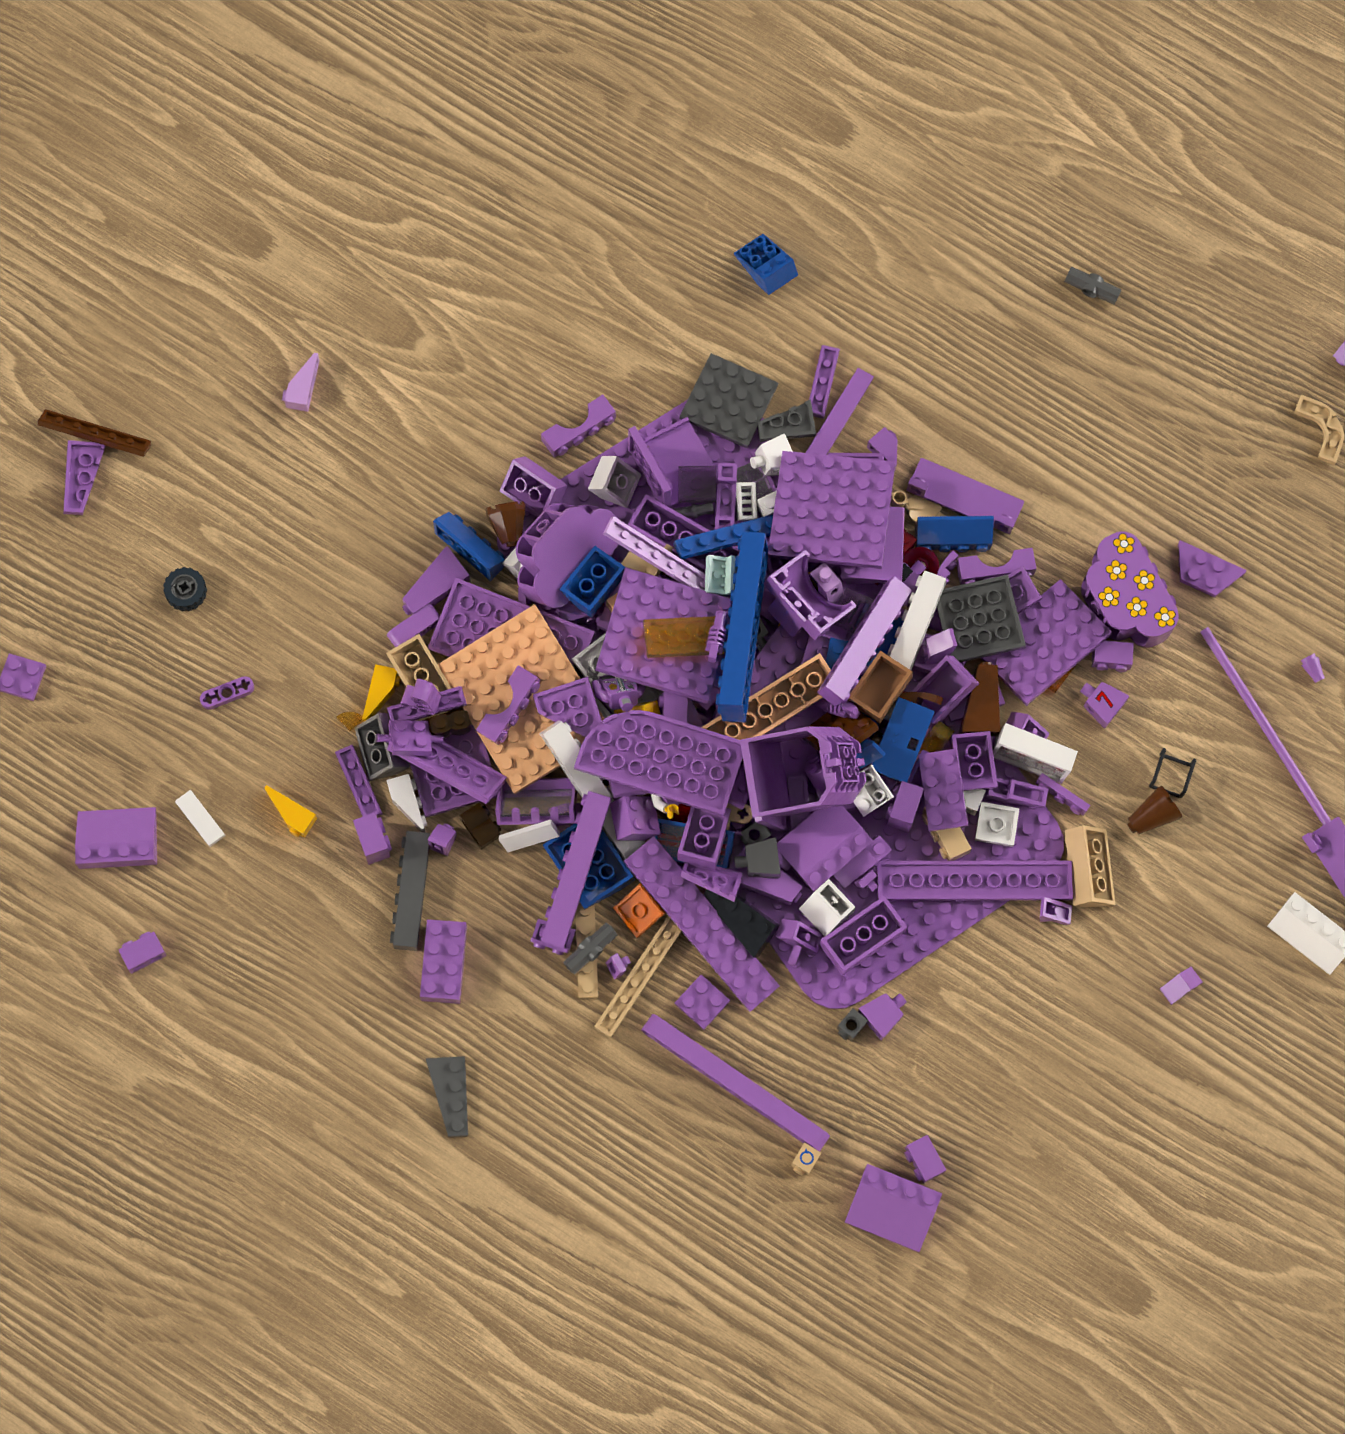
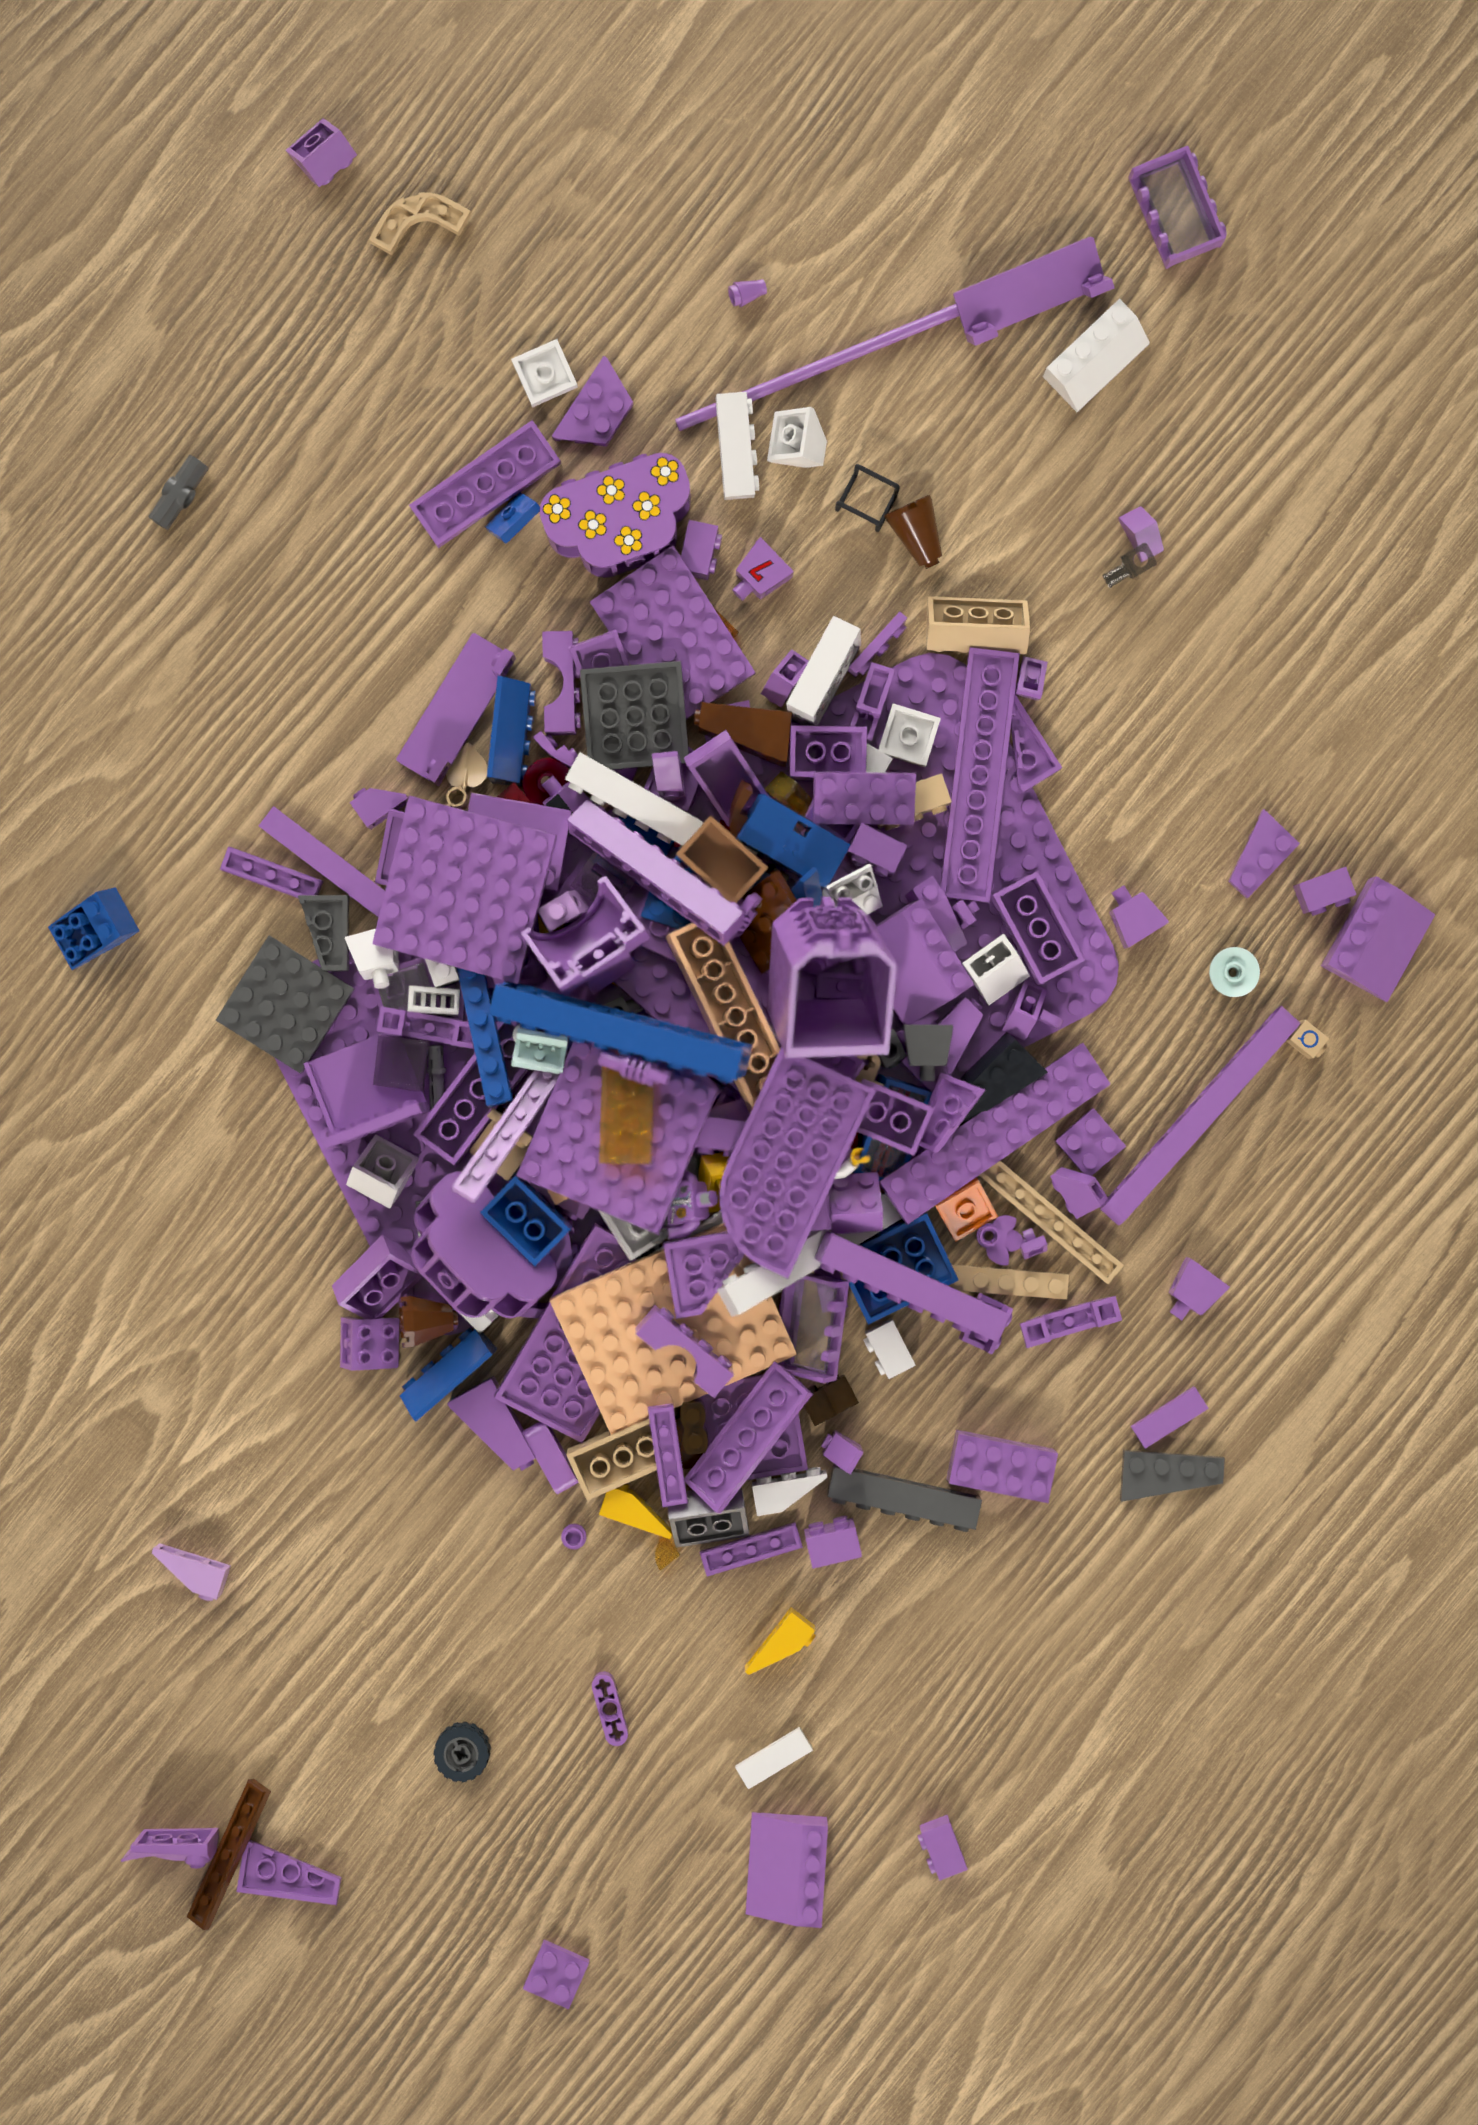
camera: 80 degrees left, 15 degrees up
(99, 403) = (190, 1845): none -> medium lavender slope
(355, 651) = (573, 1536): none -> medium lavender plate
(409, 738) = (710, 1482): medium lavender plate -> none
(422, 697) = (665, 1465): medium lavender beam -> none
(484, 488) = (369, 1343): none -> medium lavender bracket
(495, 1089) = (1169, 1417): none -> medium lavender tile
(524, 866) = (889, 1348): none -> white brick
(529, 835) = (853, 1339): white tile -> none
(560, 439) = (313, 1235): medium lavender arch -> none
(561, 1000) = (1070, 1320): none -> medium lavender slope
(590, 948) = (1011, 1278): dark grey piece -> none
(598, 1095) = (1195, 1289): none -> medium lavender torso
(623, 943) = (1003, 1239): none -> medium lavender plate
(664, 994) = (1080, 1191): none -> medium lavender slope
(854, 1086) = (1245, 966): none -> light aqua dish
(855, 1017) = (1134, 954): dark grey brick -> none
(946, 1108) = (1264, 852): none -> medium lavender wing
(995, 921) = (1032, 754): none -> medium lavender wing
(1113, 517) = (513, 517): none -> blue plate
(1136, 497) = (485, 484): none -> medium lavender plate
(1153, 975) = (1128, 568): none -> clear smoke bracket
(1195, 671) = (735, 445): none -> white brick
(1208, 717) = (797, 438): none -> white slope
(1225, 529) = (544, 373): none -> white plate

